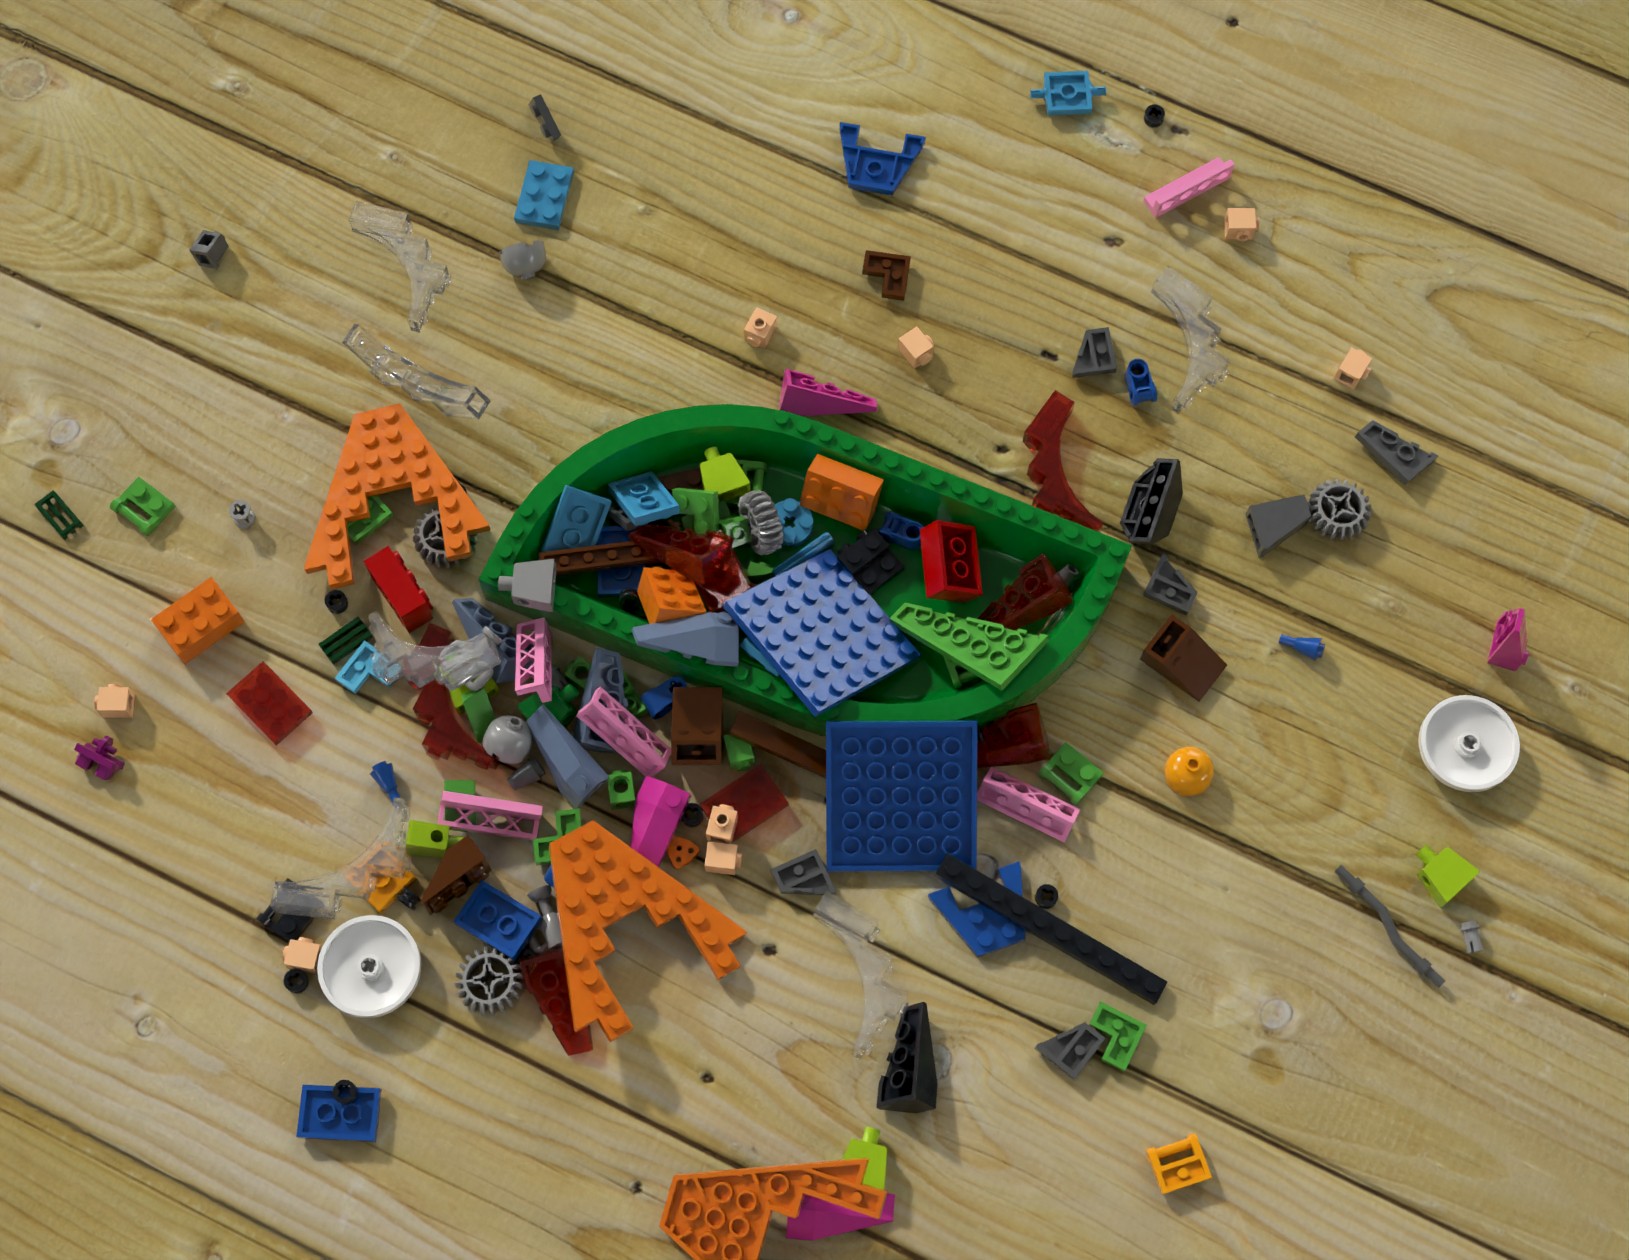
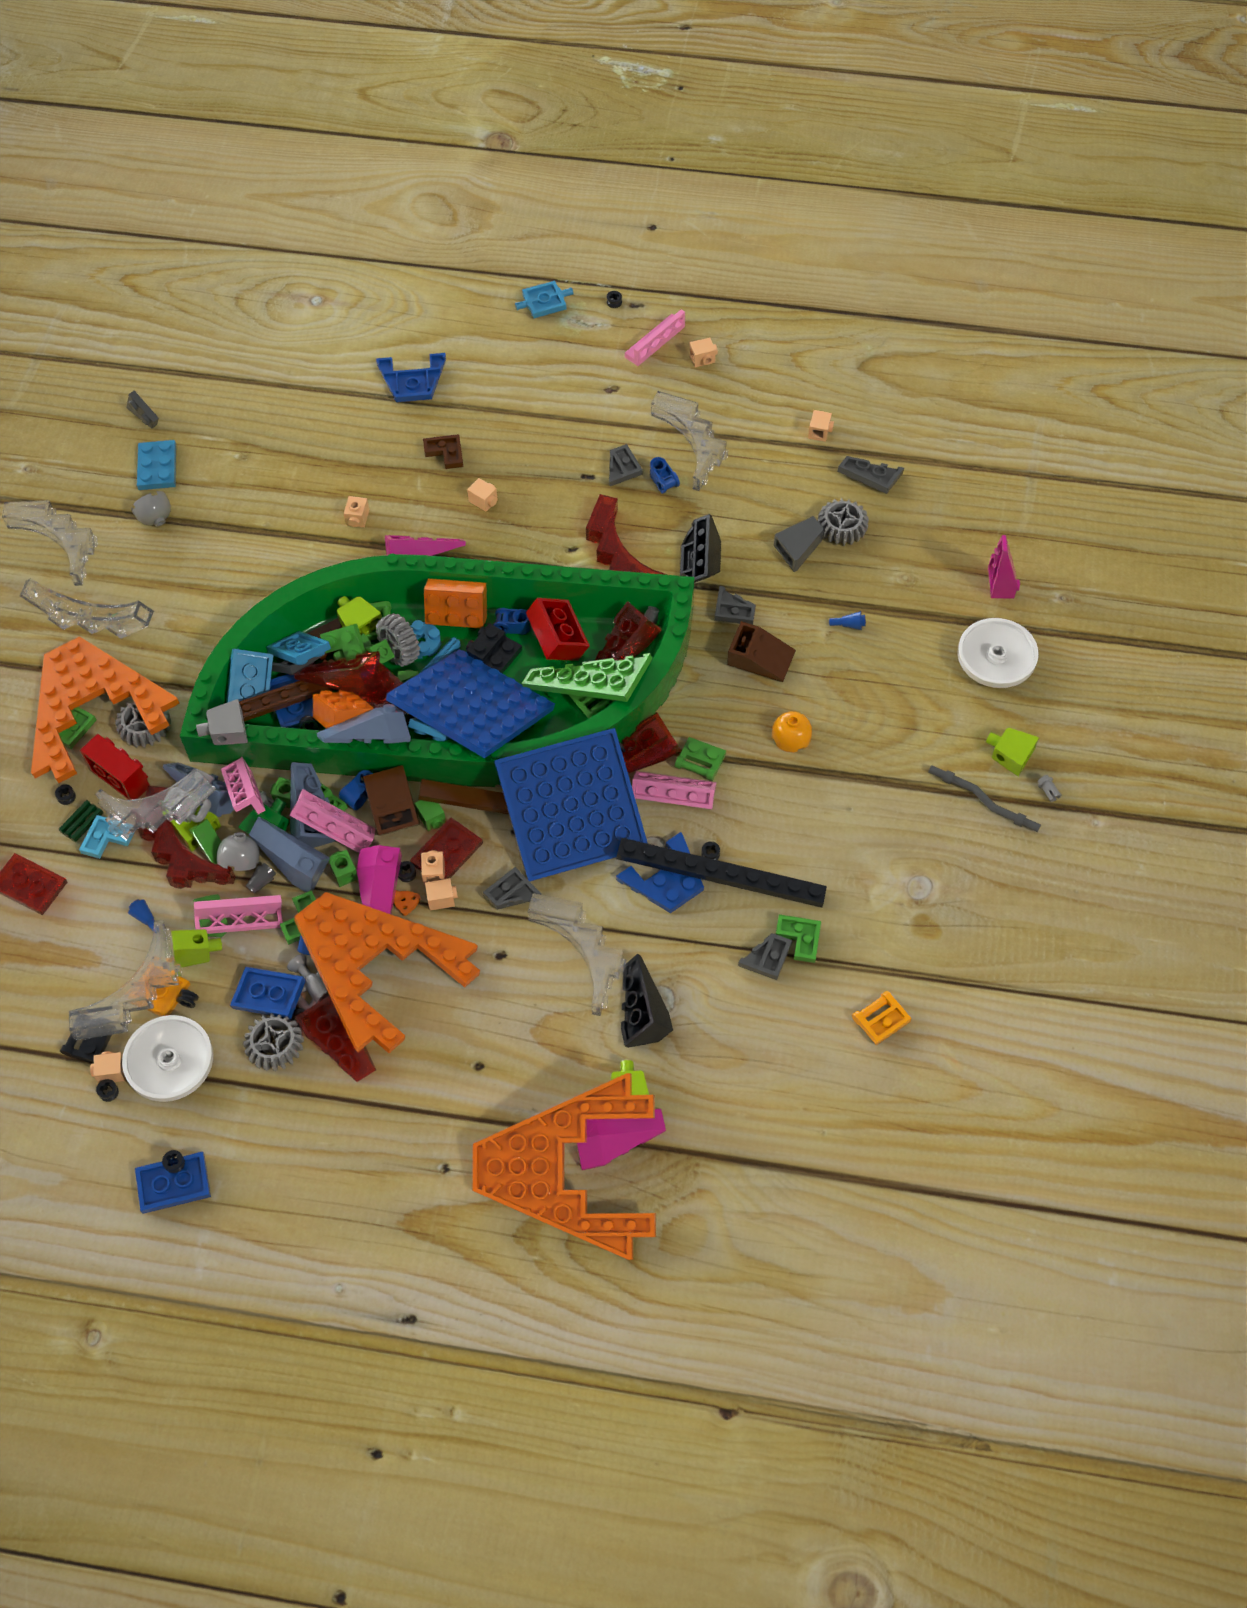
camera: 15 degrees left, 10 degrees down
(458, 870) = (224, 962): reddish brown slope -> none

